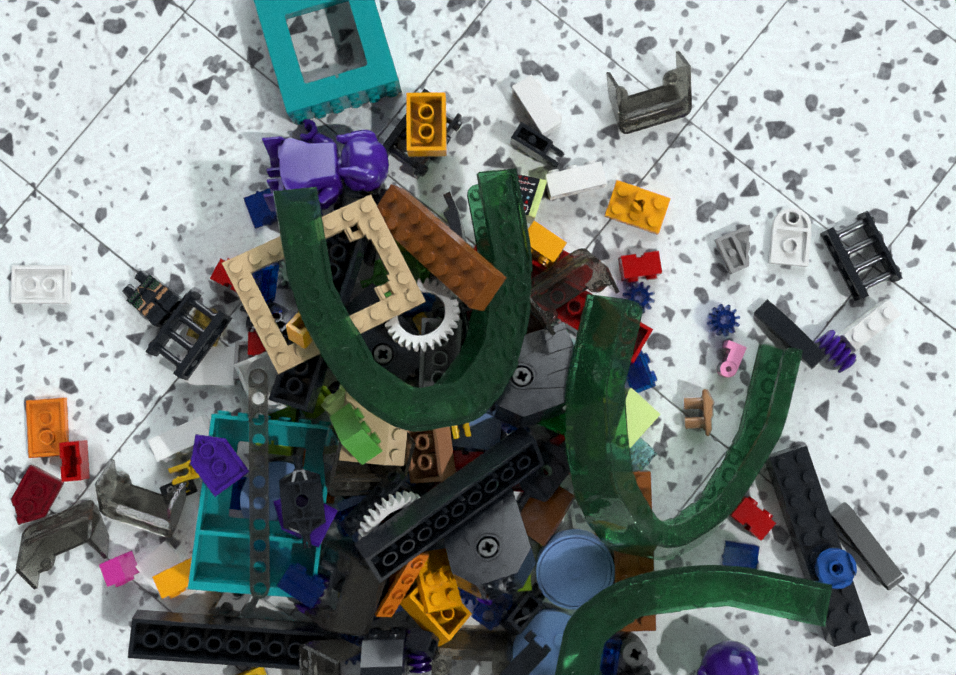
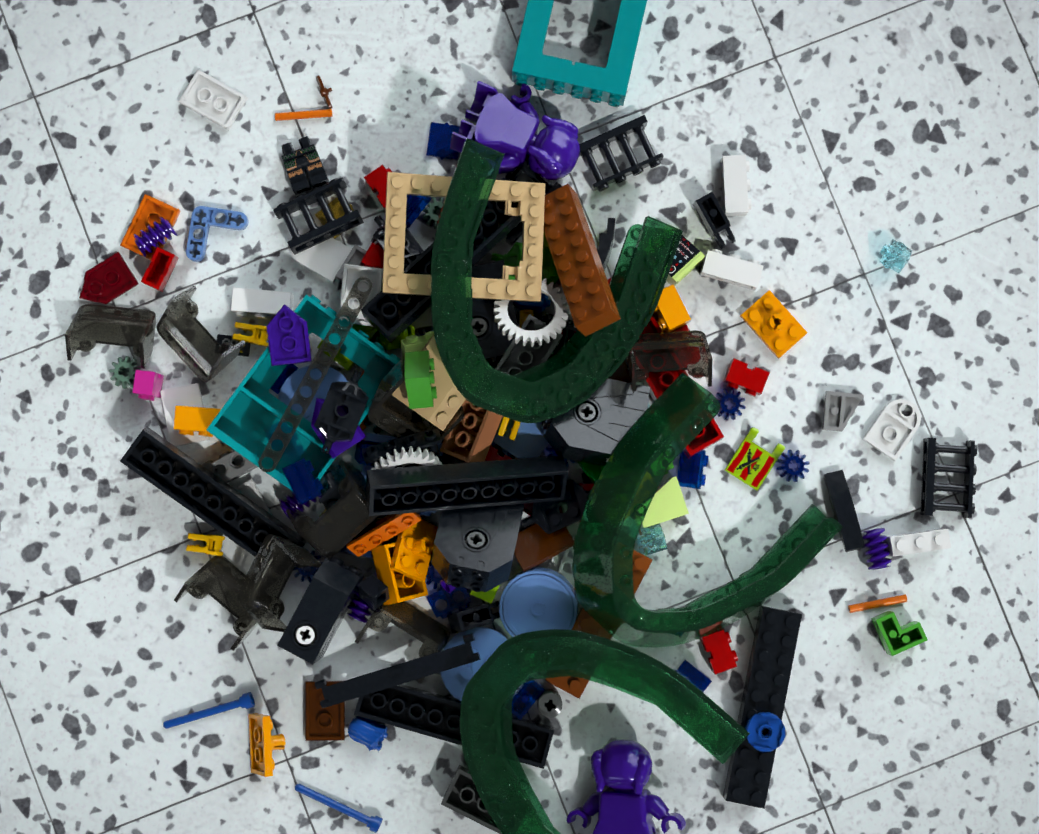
camera: 30 degrees right, 0 degrees up
(53, 434) = (154, 236): none -> dark purple piece
(88, 568) = (118, 375): none -> sand green gear
(95, 392) = (208, 221): none -> medium blue beam
(128, 253) = (303, 114): none -> orange bar
(135, 223) = (324, 91): none -> reddish brown piece
(298, 332) = (421, 266): light orange brick -> none
(426, 124) = (627, 148): light orange brick -> none
(653, 105) = (840, 242): clear smoke windscreen -> none
(686, 337) = (752, 462): none -> flag
(705, 403) = (735, 530): medium nougat connector -> none
(708, 90) = (895, 255): none -> clear light blue brick
(731, 359) = (780, 504): bright pink leg -> none
(862, 397) = (877, 603): none -> orange bar
(866, 546) = (805, 733): dark grey beam -> none
(897, 418) = (897, 638): none -> bright green brick

